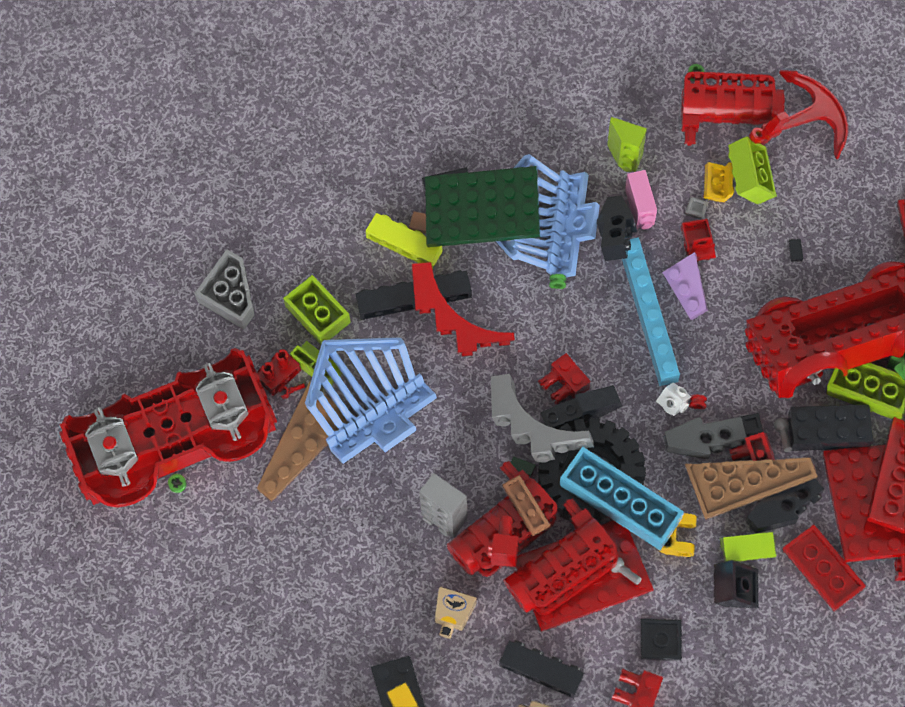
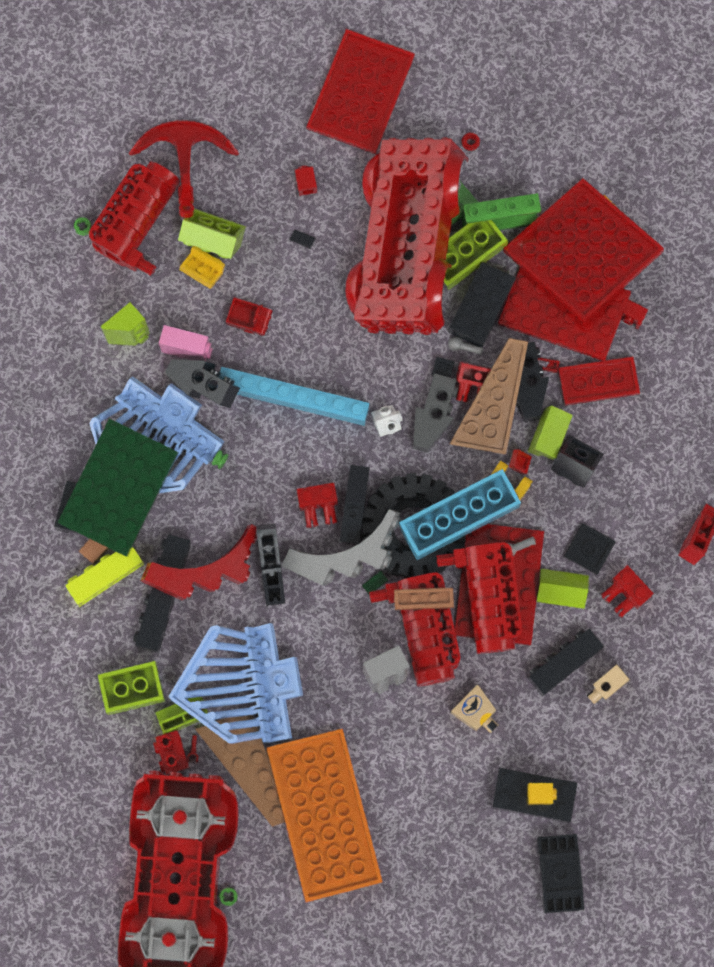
camera: 65 degrees left, 10 degrees up
(228, 290) = (67, 759): light grey brick -> none
(288, 526) = (324, 815): none -> orange plate
(489, 364) = (270, 564): none -> black brick
(504, 546) = (455, 637): red brick -> none
(609, 632) = (563, 588): none -> lime piece
(687, 285) = (286, 350): lavender wing -> none
(696, 208) = (215, 300): light grey tile -> none
(698, 402) = (398, 401): red bush -> none
(705, 534) = (520, 461): none -> red plate
(812, 520) = (552, 366): none -> red piece
(849, 224) = (305, 180): none -> red brick

